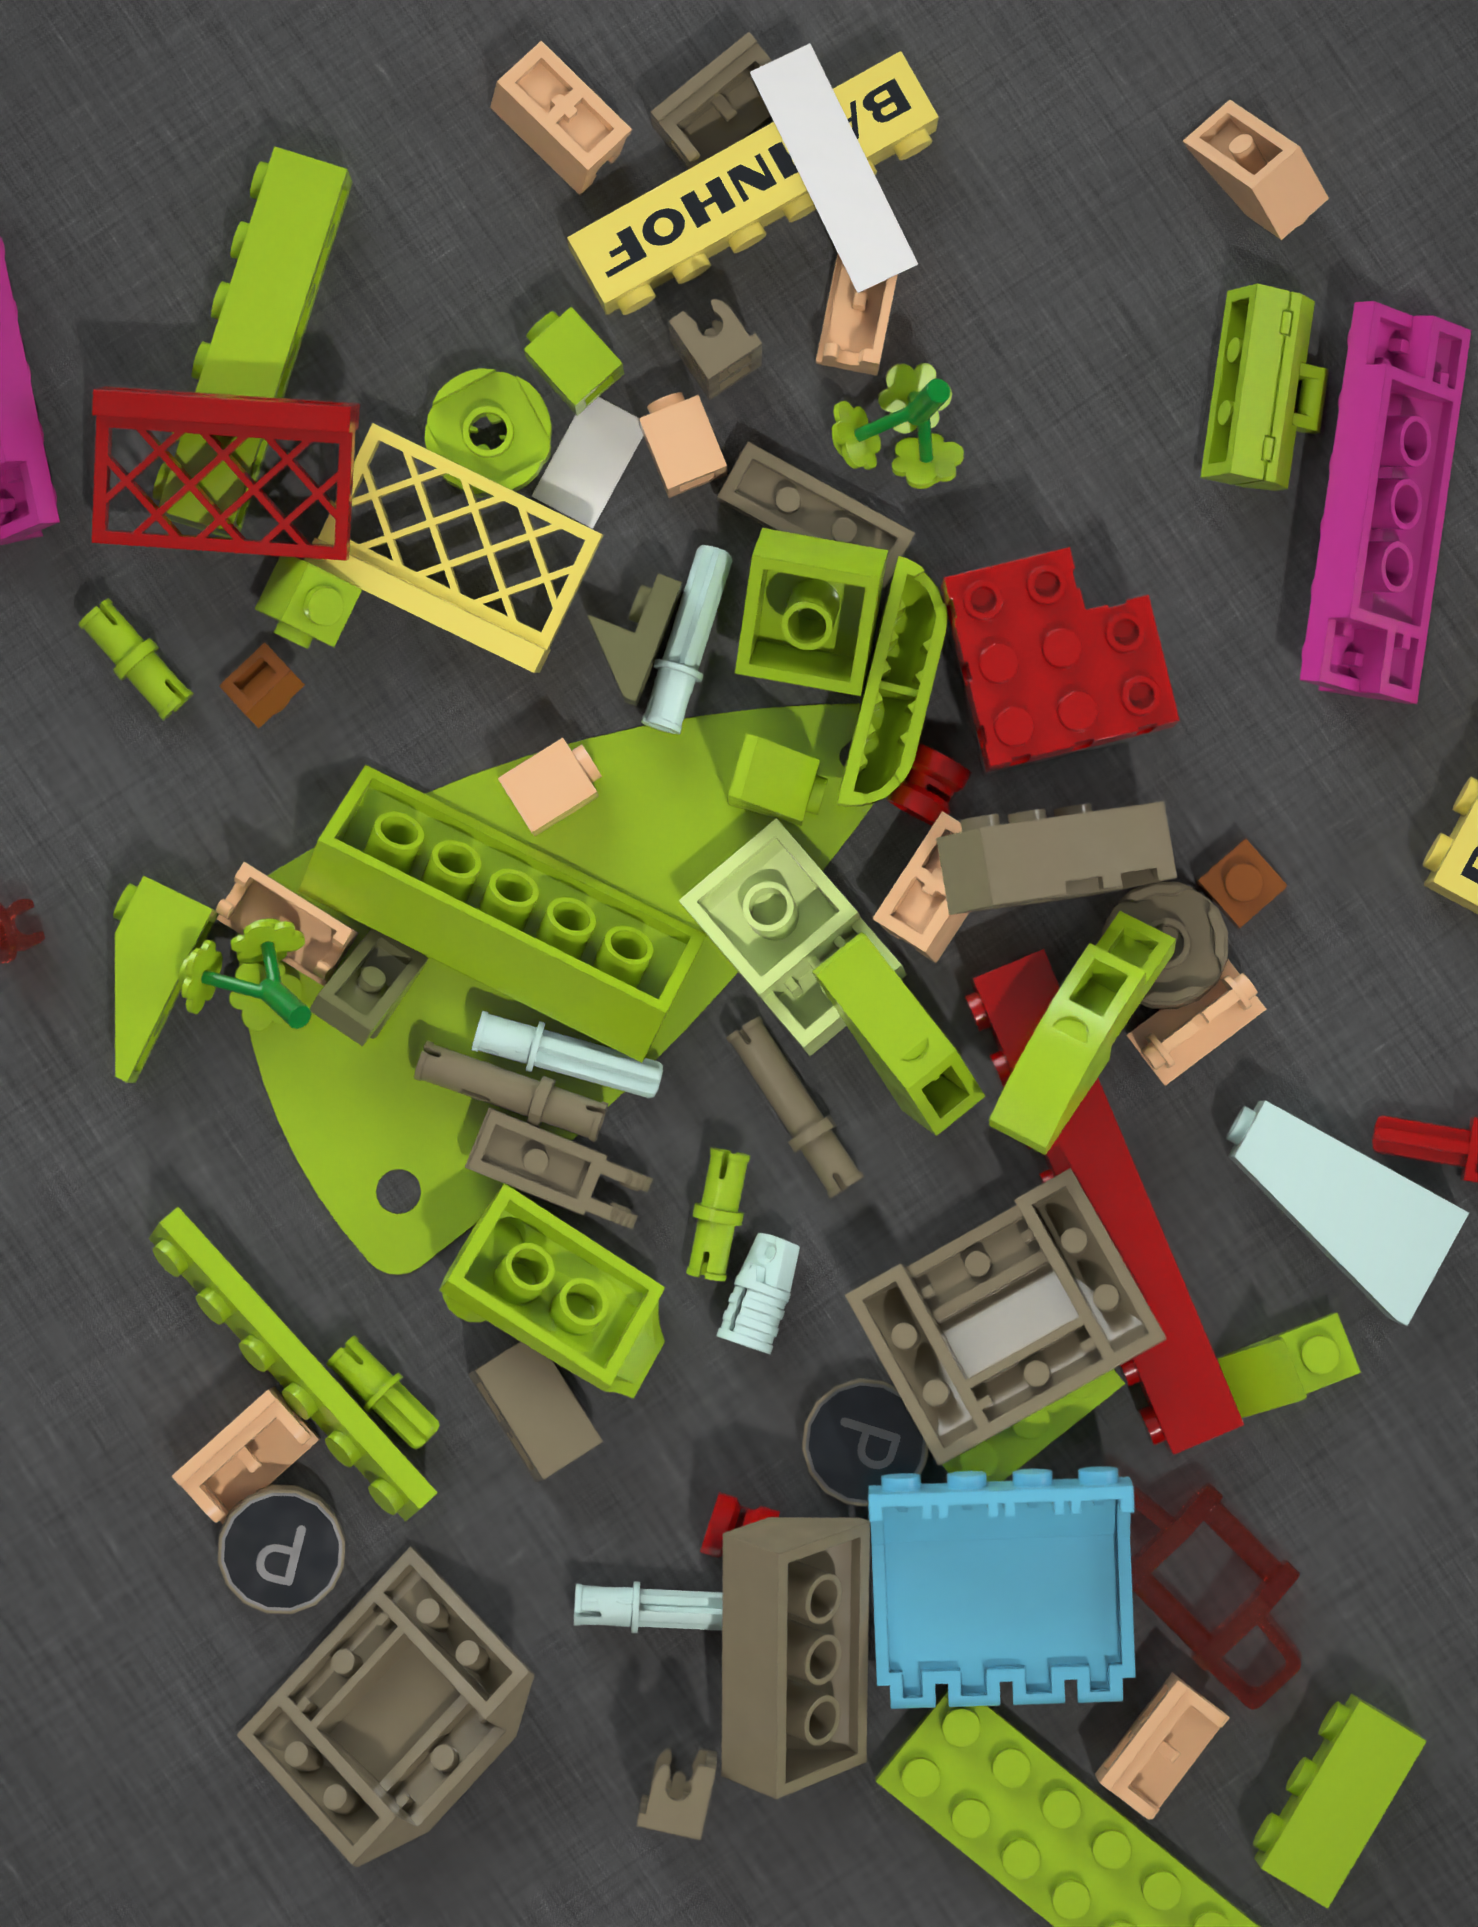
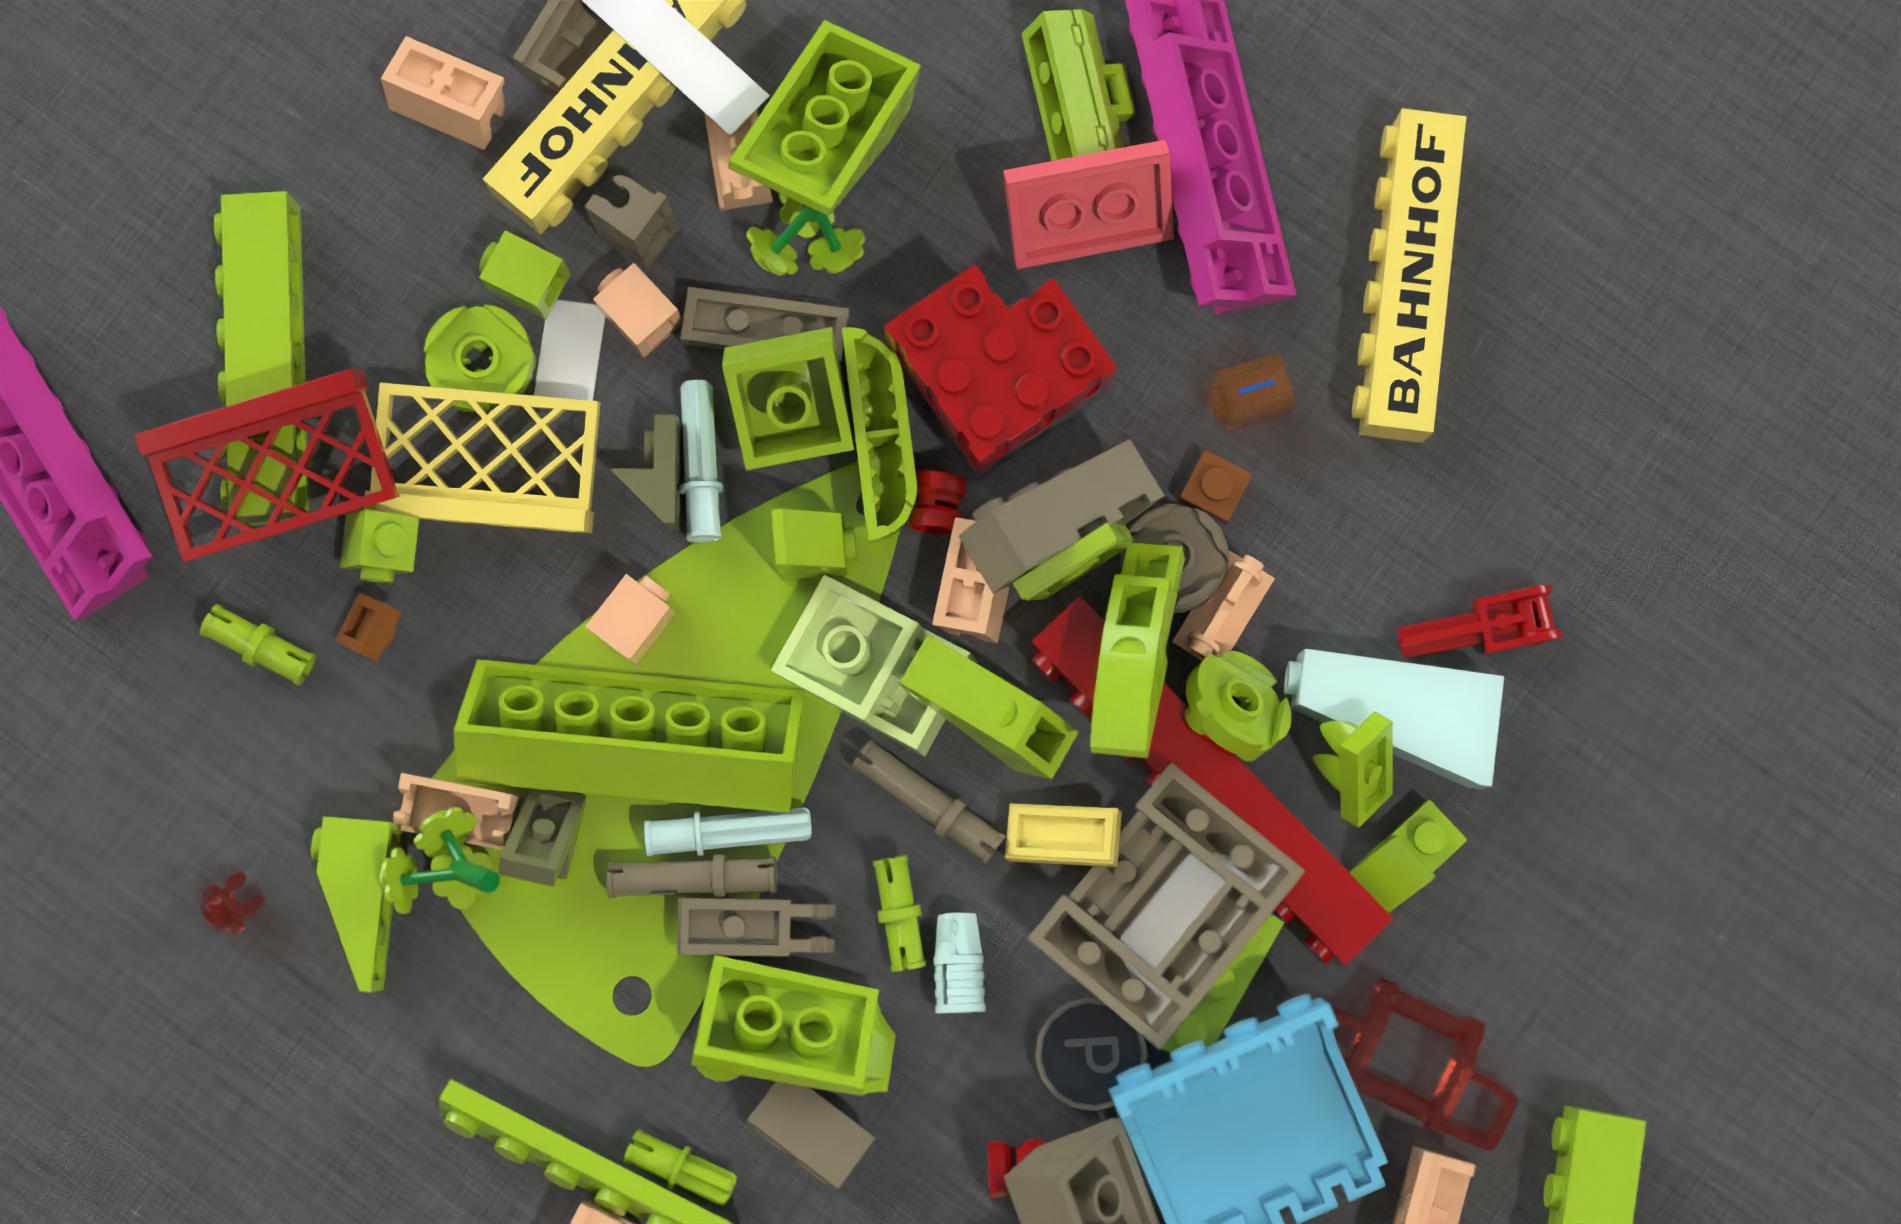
camera: 25 degrees left, 5 degrees down
(926, 1199) = (1063, 835): none -> light yellow tile
(971, 320) = (828, 119): none -> lime slope
(1051, 911) = (1074, 562): none -> lime tile
(1141, 1135) = (1242, 729): none -> lime plate
(1224, 520) = (1090, 204): none -> coral plate
(1273, 1248) = (1362, 765): none -> lime tile
(1320, 796) = (1251, 393): none -> clear orange brick

